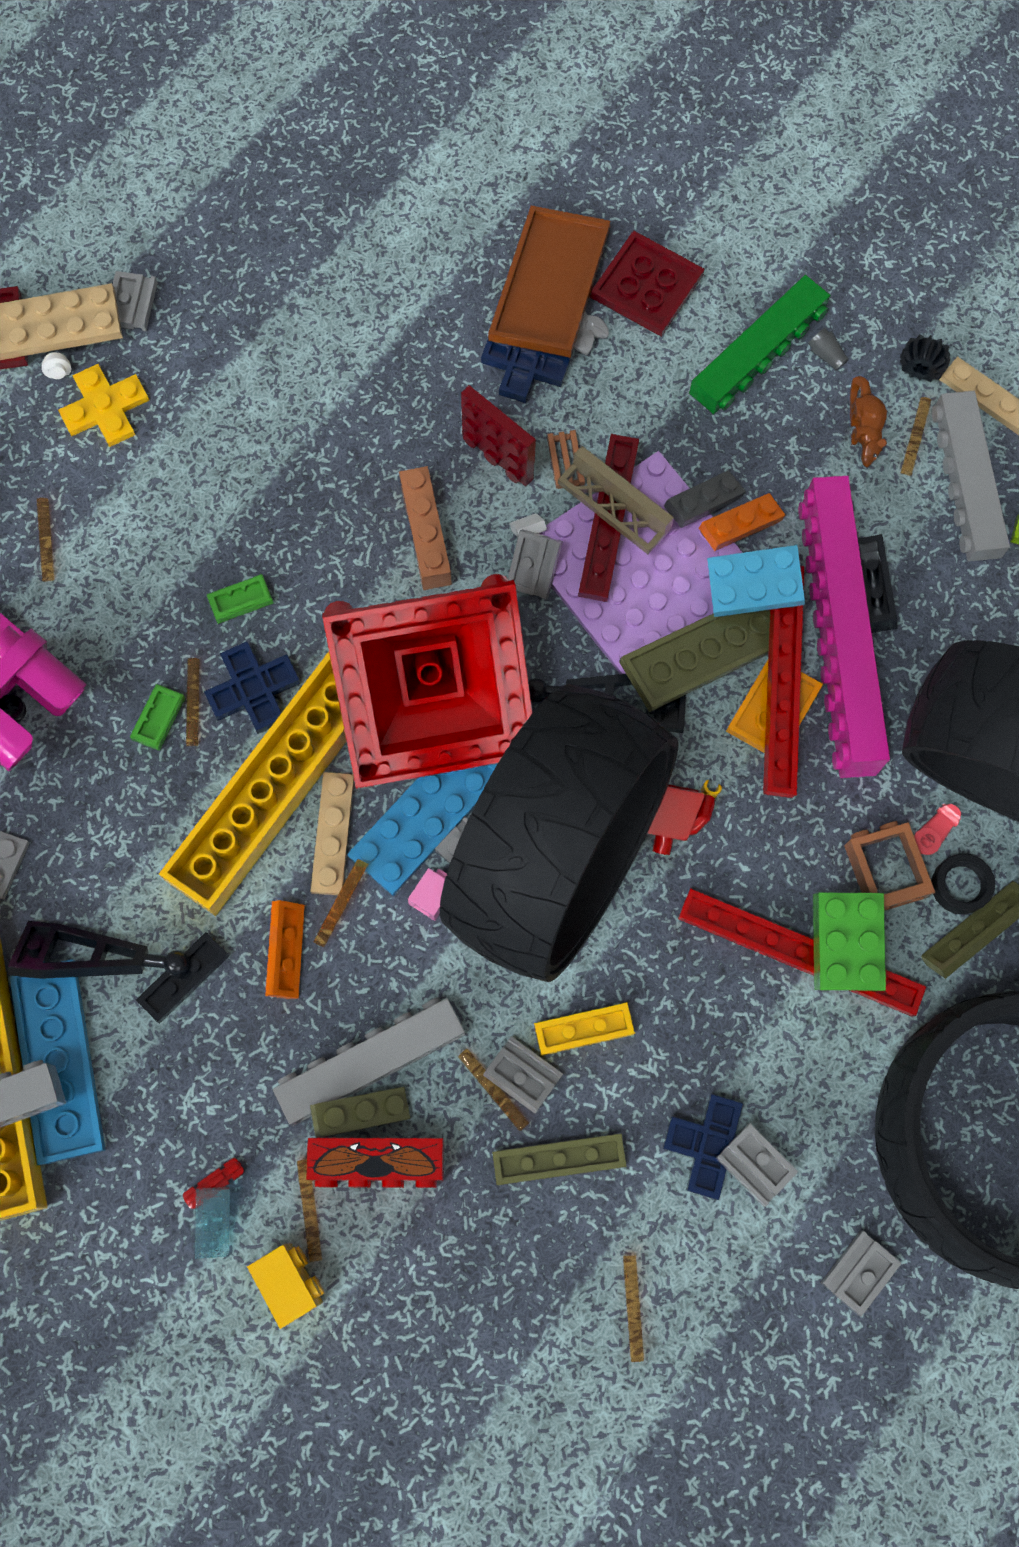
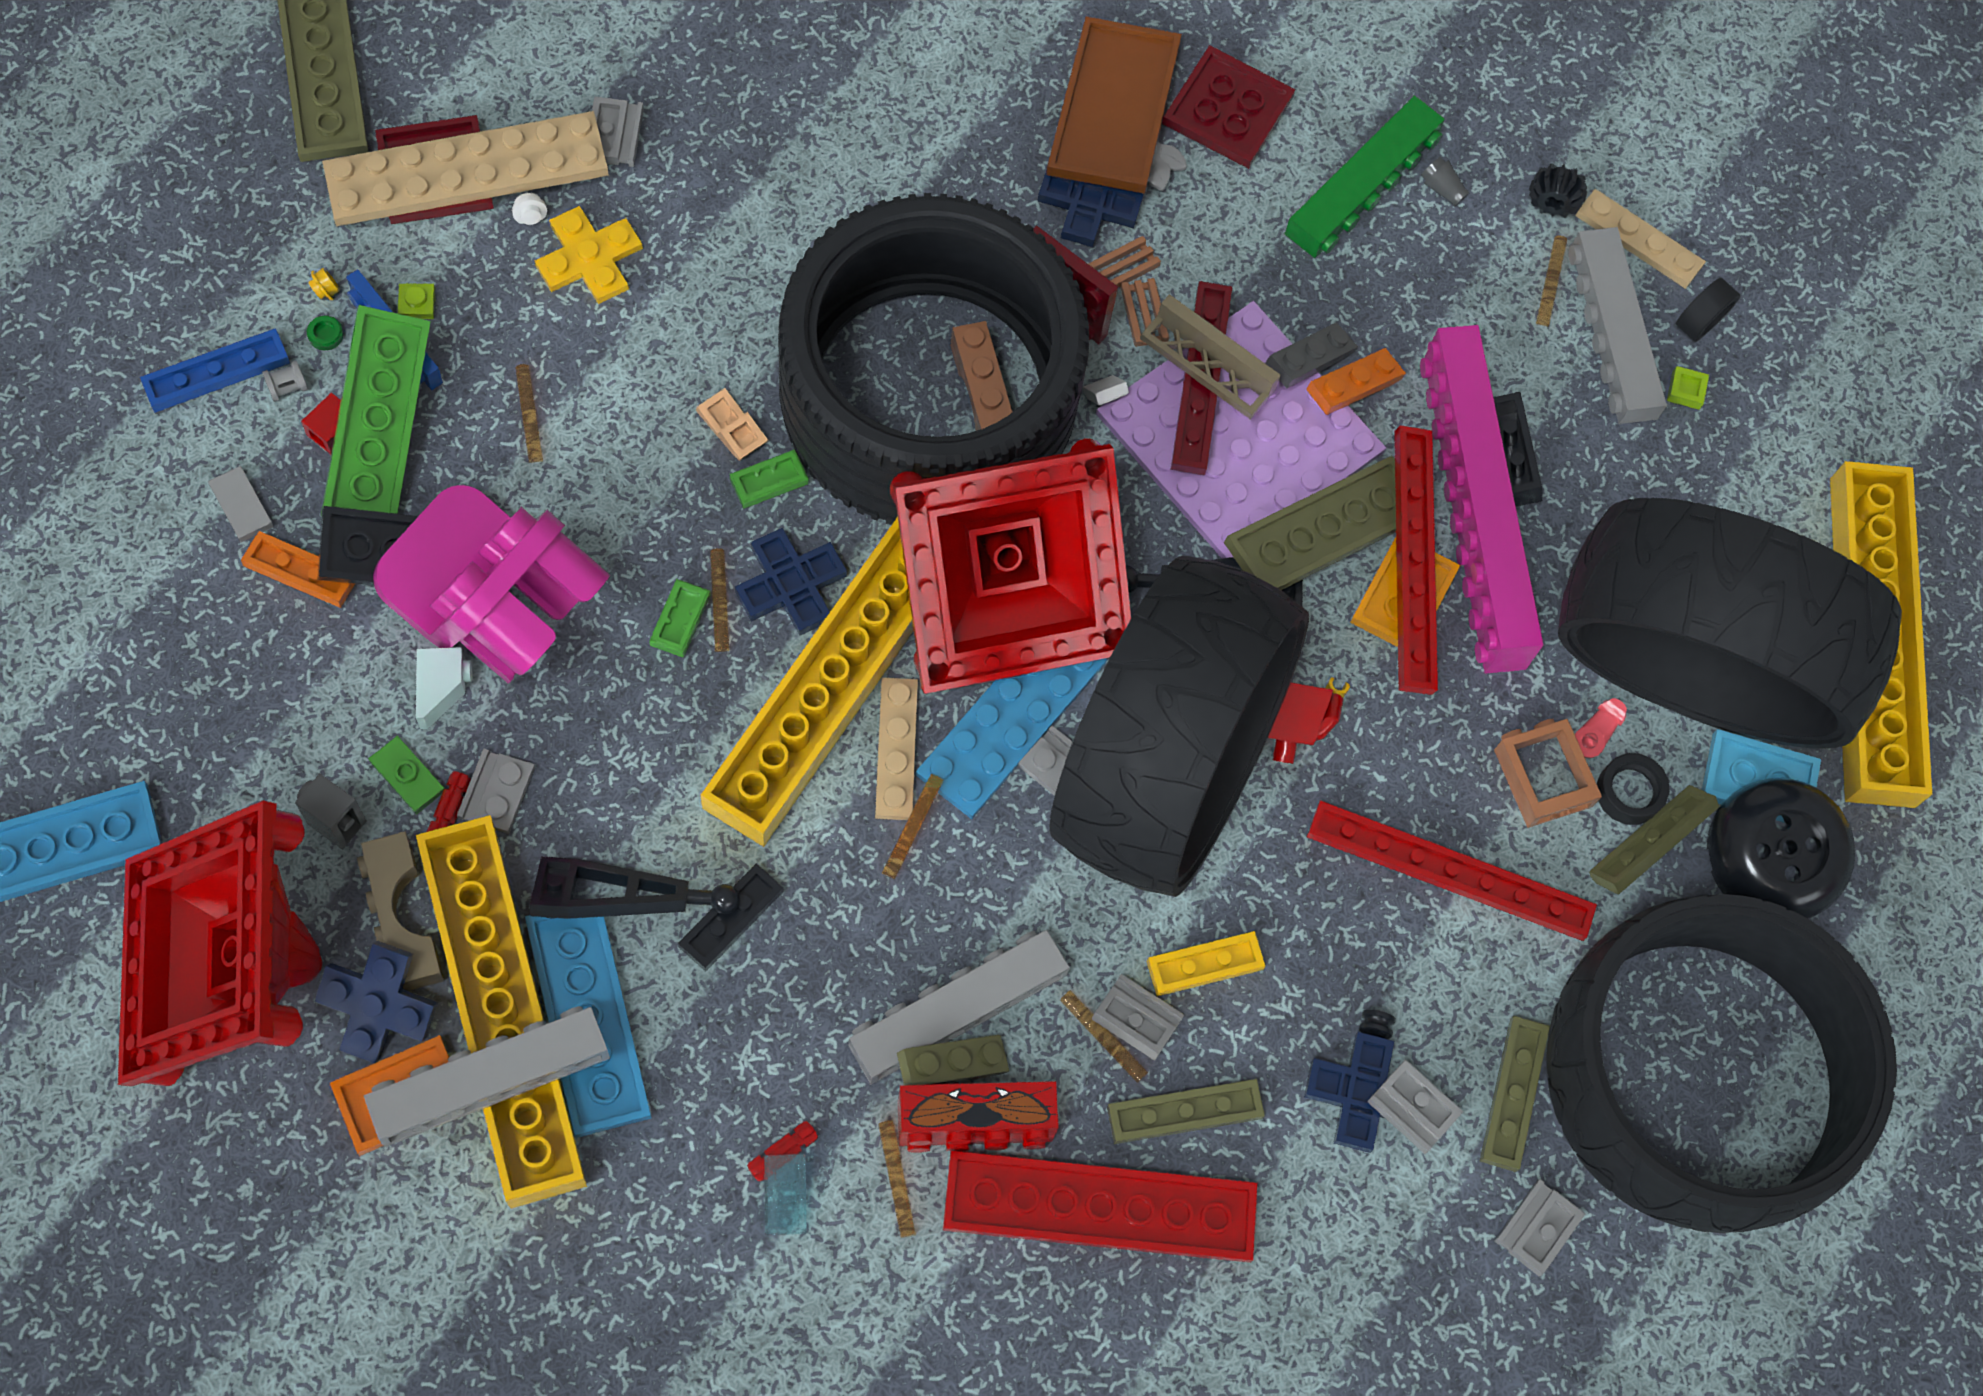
camera: 10 degrees left, 5 degrees down
(212, 551) = (731, 425): none -> light nougat slope
(285, 950) = (850, 882): orange plate -> none
(286, 1284) = (880, 1256): yellow brick -> none
(355, 406) = (934, 250): none -> black tyre
(428, 893) = (1019, 813): bright pink brick -> none
(481, 1241) = (1100, 1206): none -> red plate
(534, 563) = (1122, 425): light grey plate -> none
(569, 408) = (1146, 252): none -> nougat tile
(633, 1308) = (1280, 1277): clear orange bar -> none
(729, 1087) = (1377, 1023): none -> black bush
(756, 581) = (1377, 447): medium azure plate -> none
(845, 1152) = (1514, 1094): none -> olive plate
(849, 941) = (1507, 852): bright green brick -> none
(868, 417) = (1496, 260): dark orange animal -> none

